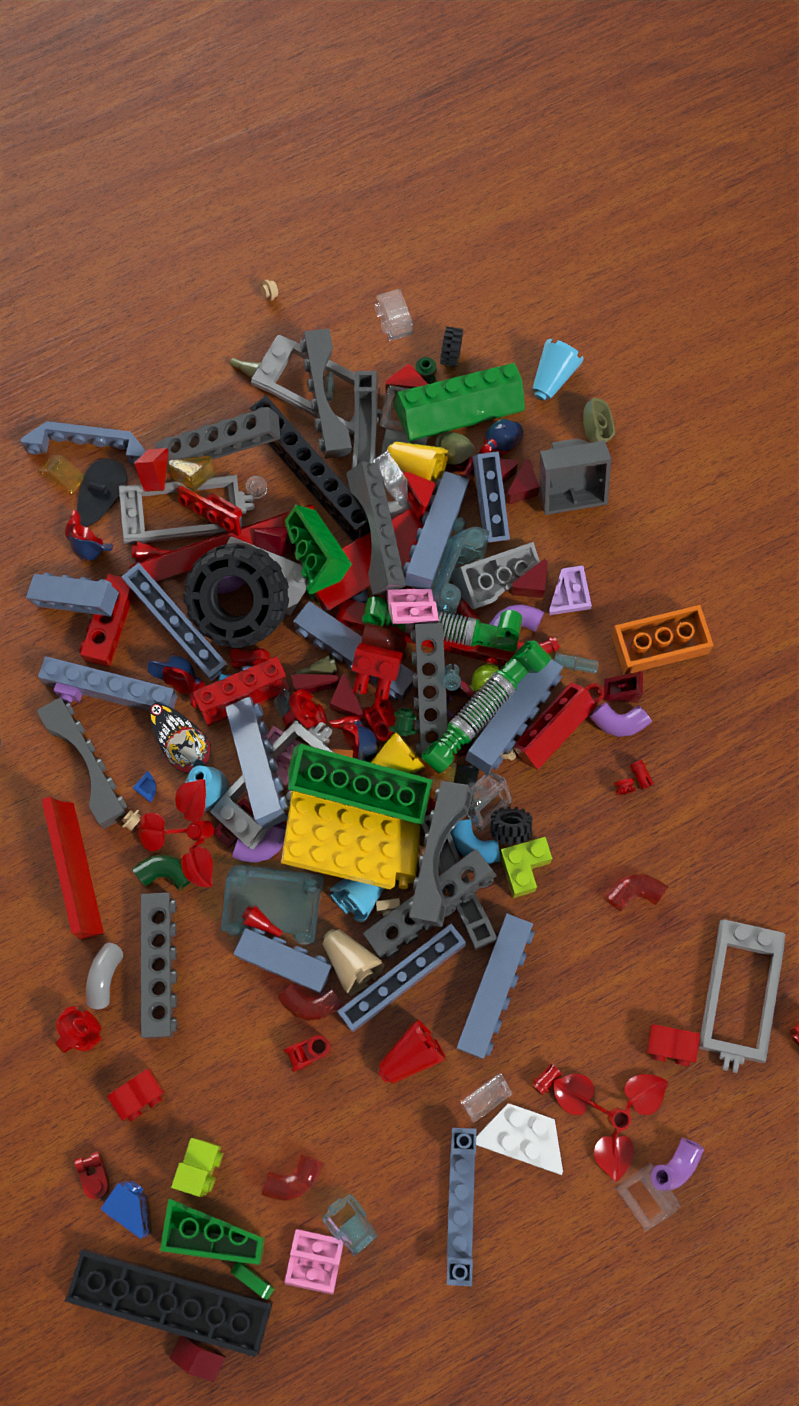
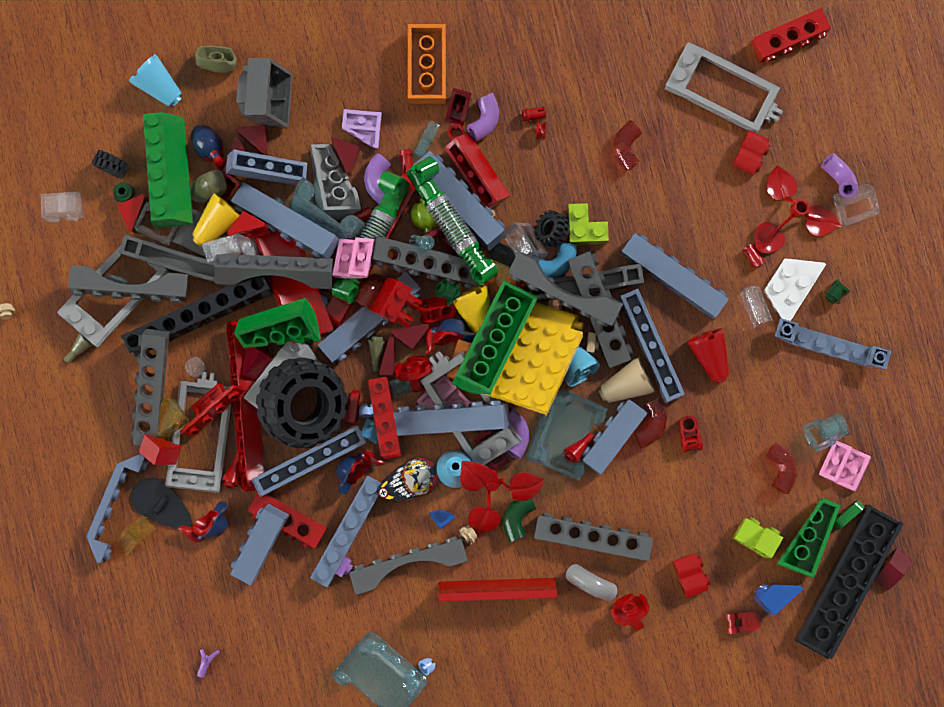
camera: 80 degrees left, 10 degrees up
(529, 1196) = (836, 292): none -> dark green brick

